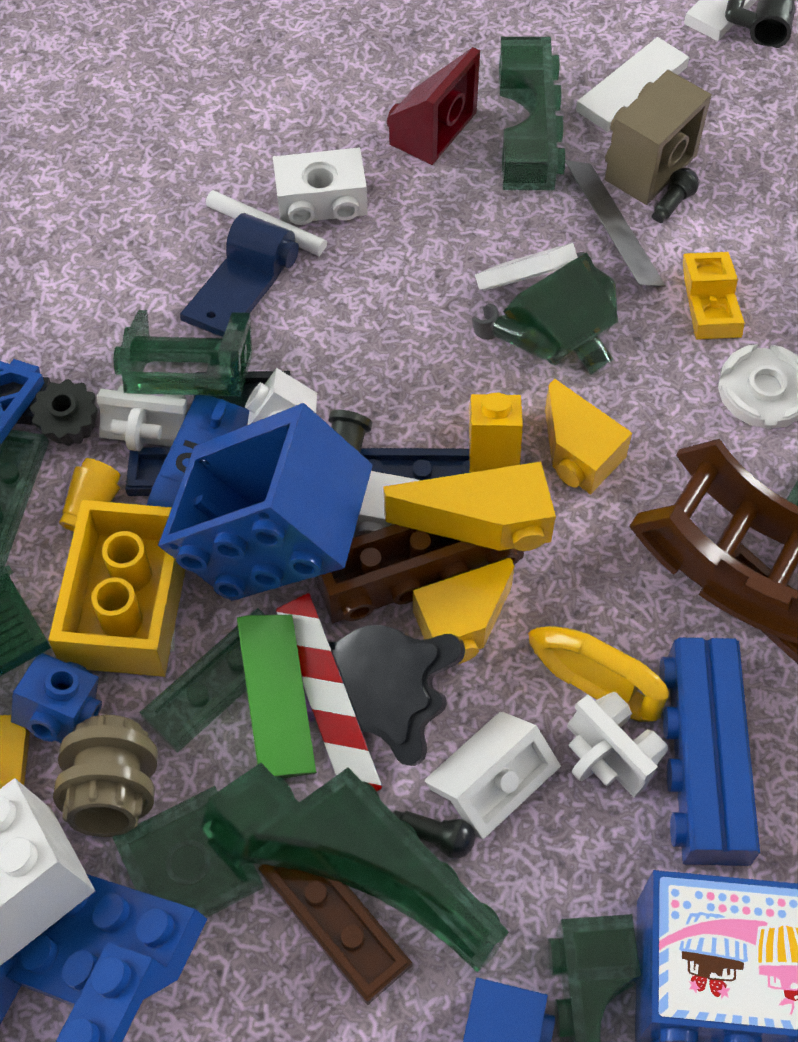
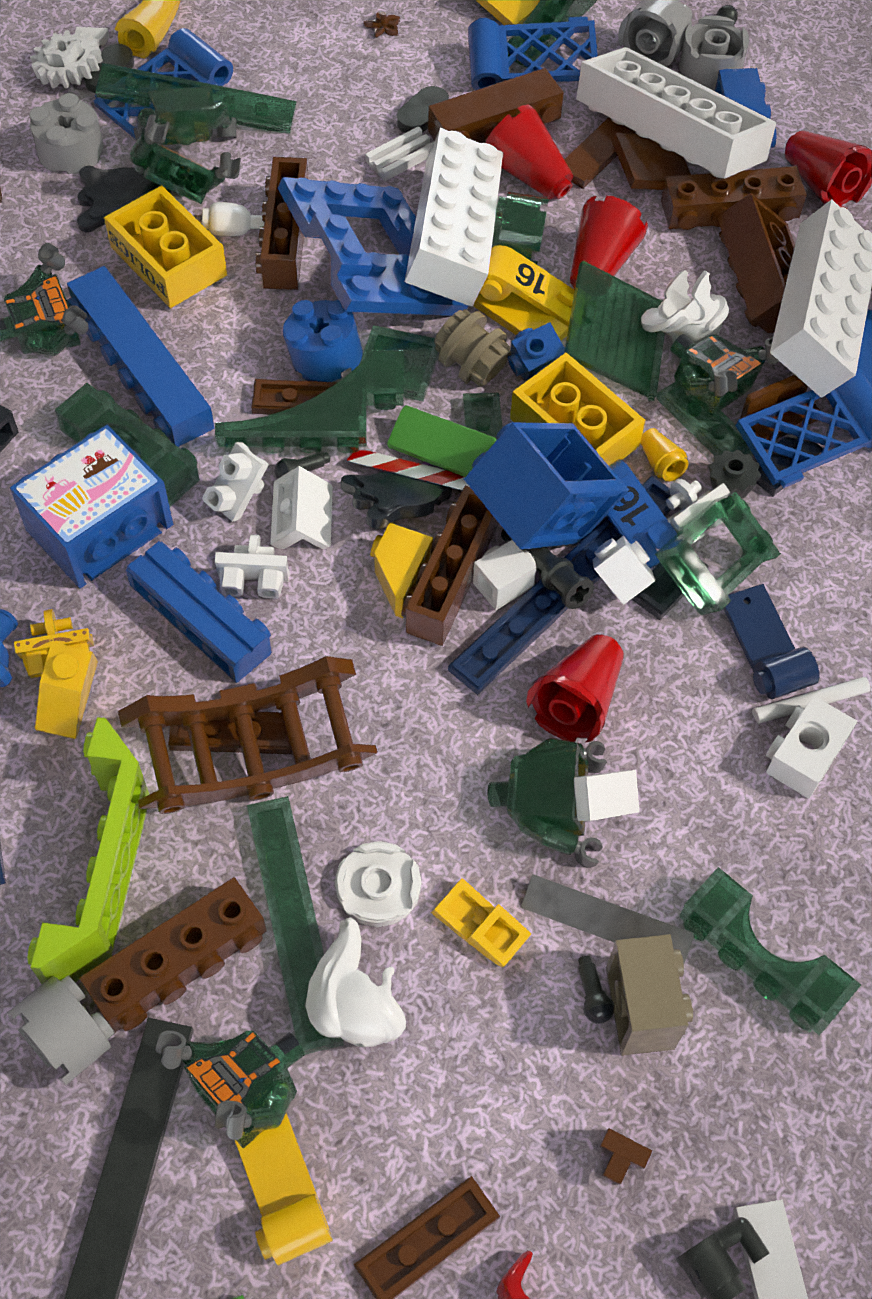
camera: 130 degrees right, 0 degrees up
(283, 960) = (322, 340): none -> blue brick
(434, 361) = (578, 690): none -> red cone
(436, 109) = (817, 870): dark red slope -> none
(484, 508) = (434, 578): yellow slope -> none
(494, 431) = (500, 673): yellow slope -> none
(540, 854) = (237, 482): none -> white hips
(582, 439) = (449, 722): yellow slope -> none
(600, 669) = (296, 600): yellow piece -> none
(627, 81) = (738, 1078): white tile -> none
(764, 97) = (624, 1153): none -> reddish brown tile

